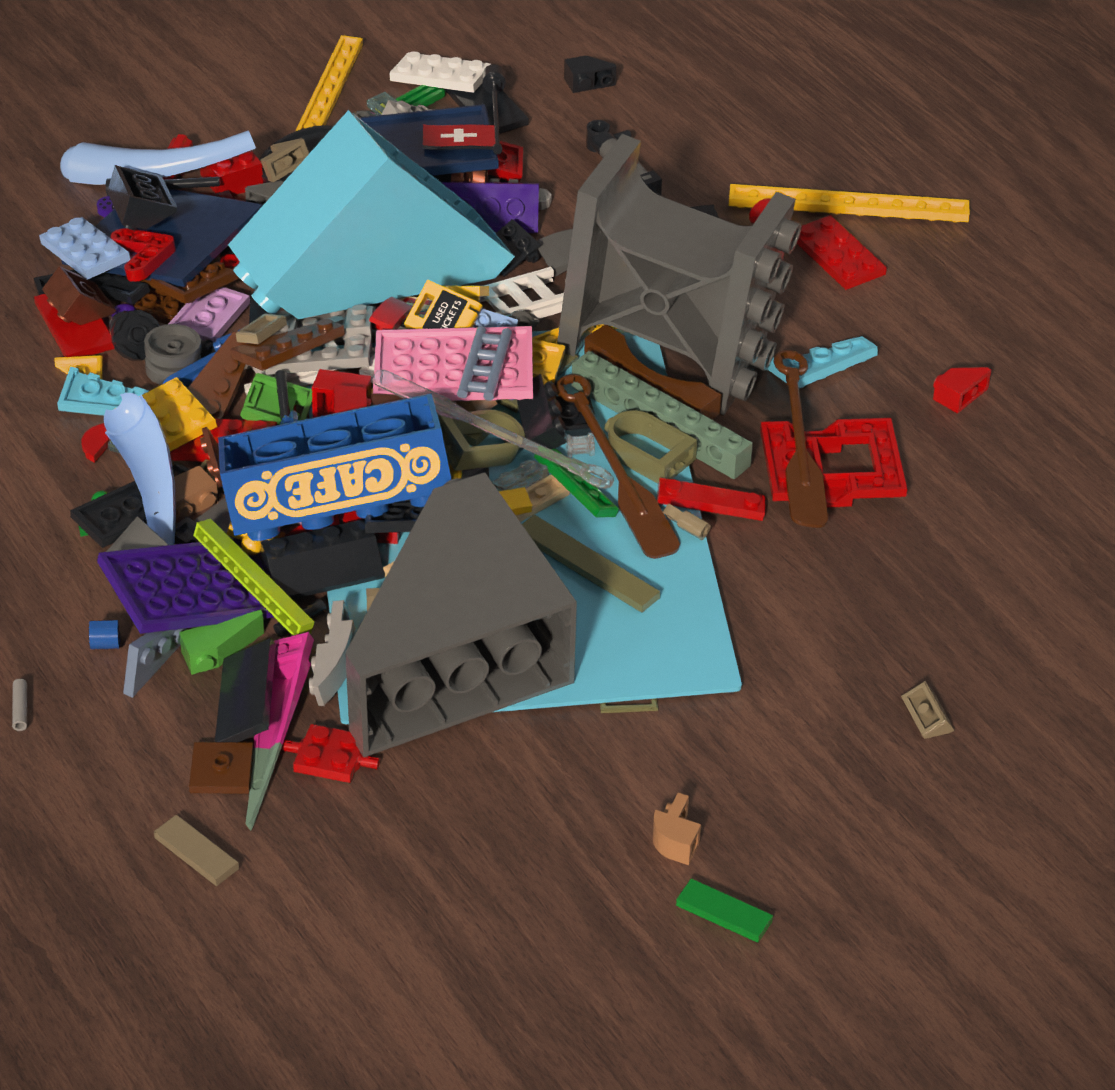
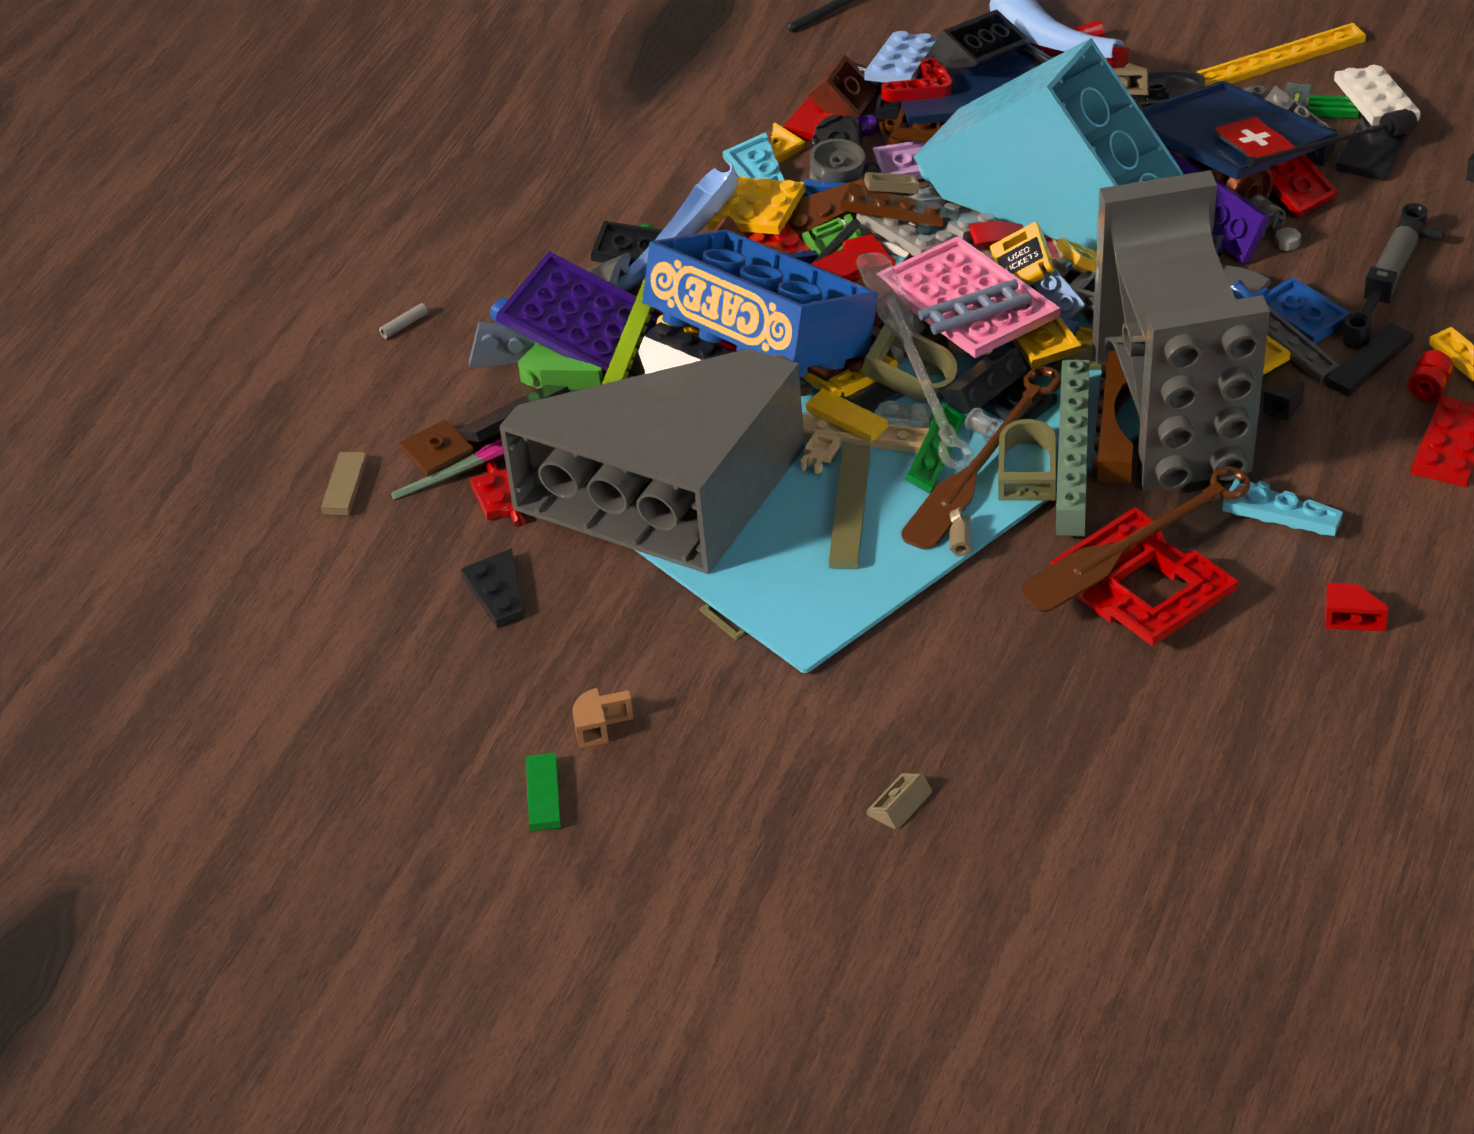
camera: 60 degrees right, 0 degrees up
(446, 818) = (496, 587): none -> black wing
(711, 499) = (1010, 532): red plate -> none

